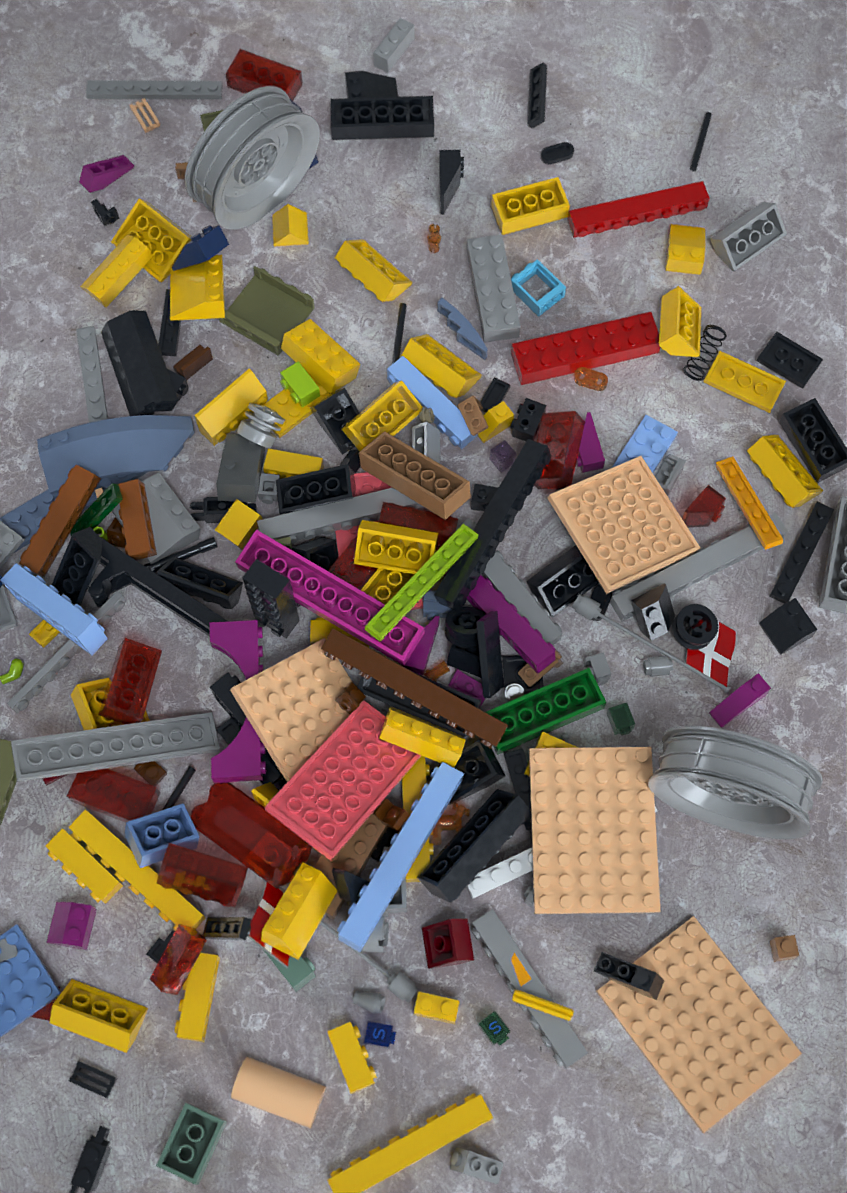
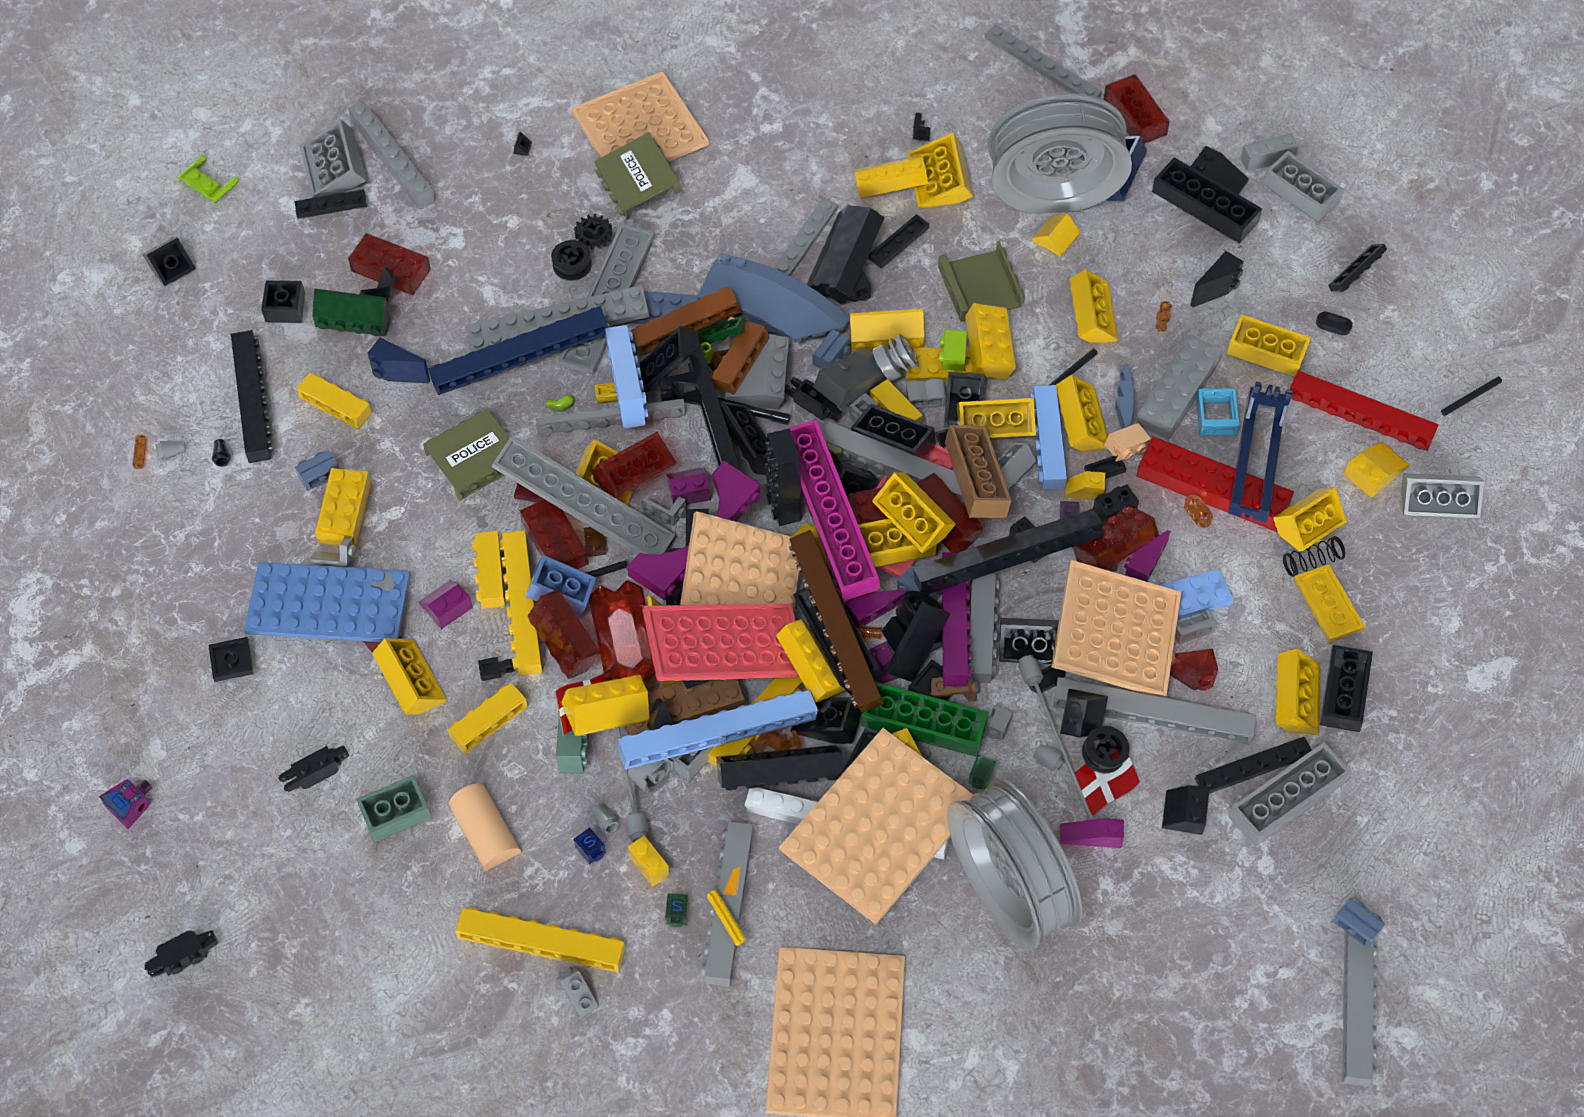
camera: 40 degrees right, 10 degrees down
(76, 1072) = (361, 702): black tile -> none
(103, 173) = (945, 99): magenta slope -> none
(139, 105) = (1019, 68): light nougat tile -> none
(178, 959) = (495, 678): clear red brick -> none
(185, 661) = (689, 485): none -> magenta slope
(192, 702) = (669, 516): none -> light grey bracket
(193, 361) = (889, 281): reddish brown panel -> none
(198, 291) = (940, 230): yellow slope -> none
(200, 457) = (831, 349): none -> sand blue brick
(202, 247) = (966, 197): dark blue slope -> none
(227, 928) = (547, 681): black plate -> none
(239, 524) = (816, 408): yellow slope -> none
(306, 437) = (926, 393): none -> light grey brick
(350, 698) = (782, 594): reddish brown bracket -> none
(352, 1057) = (556, 845): yellow brick -> none
(391, 815) = (735, 694): reddish brown bracket -> none
(421, 582) = (907, 545): lime plate -> none
(426, 415) = (1033, 440): dark tan plate -> none
(443, 56) = (1303, 186): none -> light grey brick
(447, 943) = (699, 824): dark red slope -> none
(472, 415) = (1071, 462): medium nougat bracket -> none
(495, 362) = (1127, 442): none -> light nougat hinge
(513, 691) = (915, 686): plate -> none
(587, 255) = (1281, 403): none -> dark blue piece
(630, 975) = (812, 953): black slope -> none
(749, 503) = (1239, 691): light orange plate -> none
(784, 948) = (953, 1034): medium nougat brick -> none
(789, 360) = (1385, 614): black plate -> none

